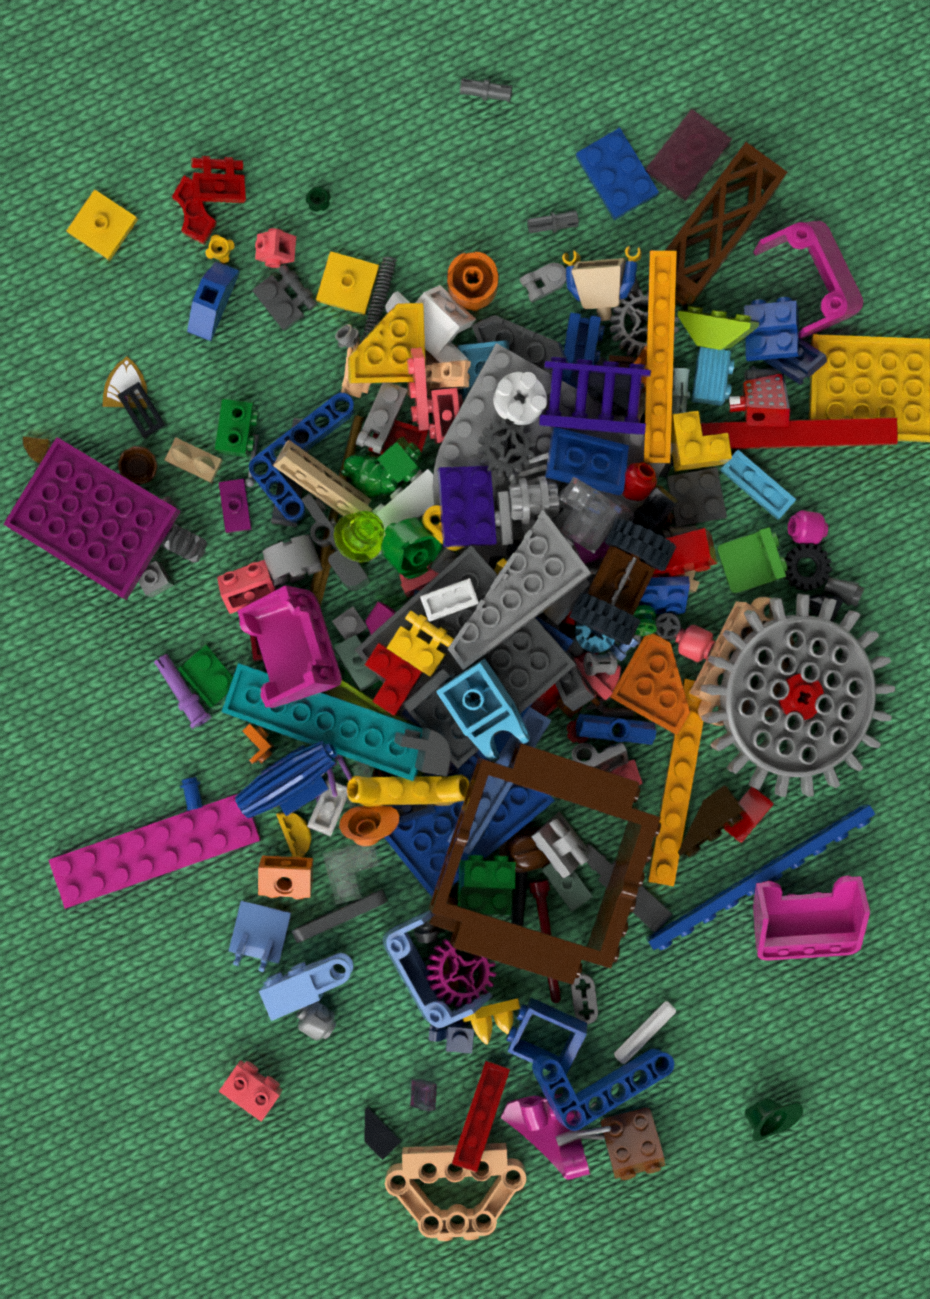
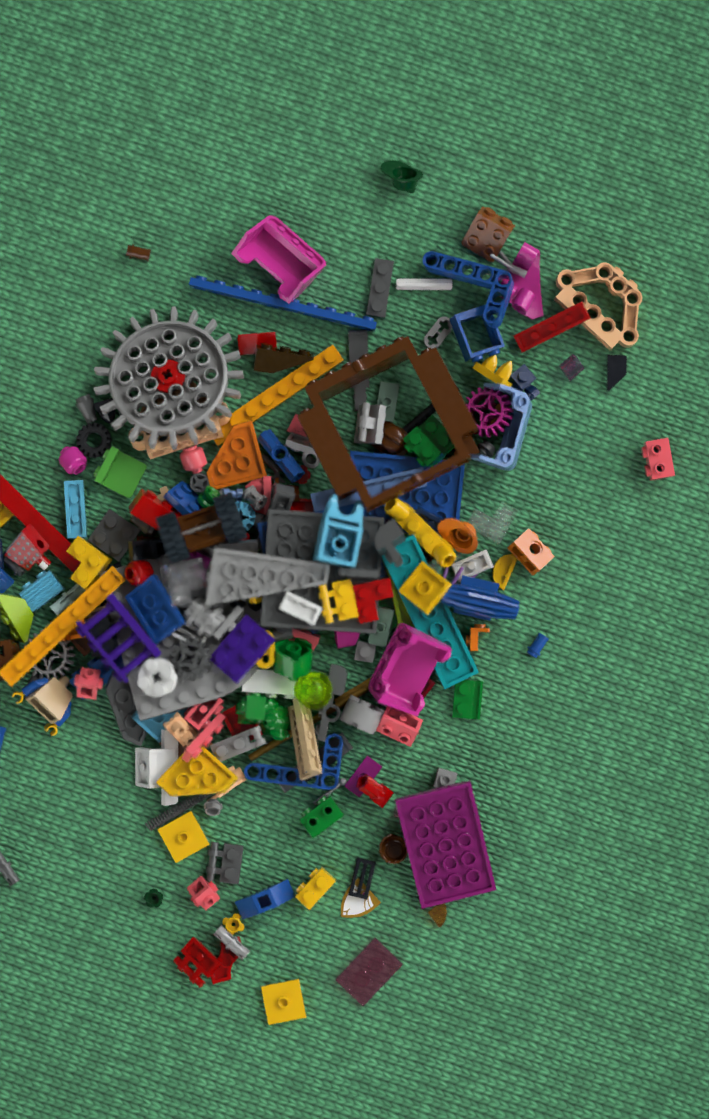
camera: 140 degrees left, 0 degrees up
(49, 331) = (369, 971): none -> clear pink tile
(152, 851) = (588, 636): dark pink plate -> none
(175, 356) = (315, 888): none -> yellow brick
(184, 543) = (409, 780): dark grey gear -> none
(187, 701) = (491, 695): medium lavender pin -> none
(193, 460) = (361, 823): tan tile -> none
(203, 228) = (231, 942): none -> light grey pin
(205, 503) = (377, 792): none -> red piece
(259, 933) = (574, 536): medium blue plate -> none
(303, 984) = (576, 486): light blue brick -> none
(316, 1021) = (589, 461): light grey head -> none
(339, 916) = (523, 503): dark grey beam -> none
(350, 739) = (424, 587): none -> yellow plate
(472, 266) = (110, 778): orange brick -> none
(540, 889) = (405, 412): dark red piece -> none
(552, 276) = (70, 730): light grey plate -> none
(553, 222) = (41, 758): dark grey axle -> none
(580, 330) = (88, 683): none -> coral brick
(683, 986) = (380, 288): none -> dark grey plate

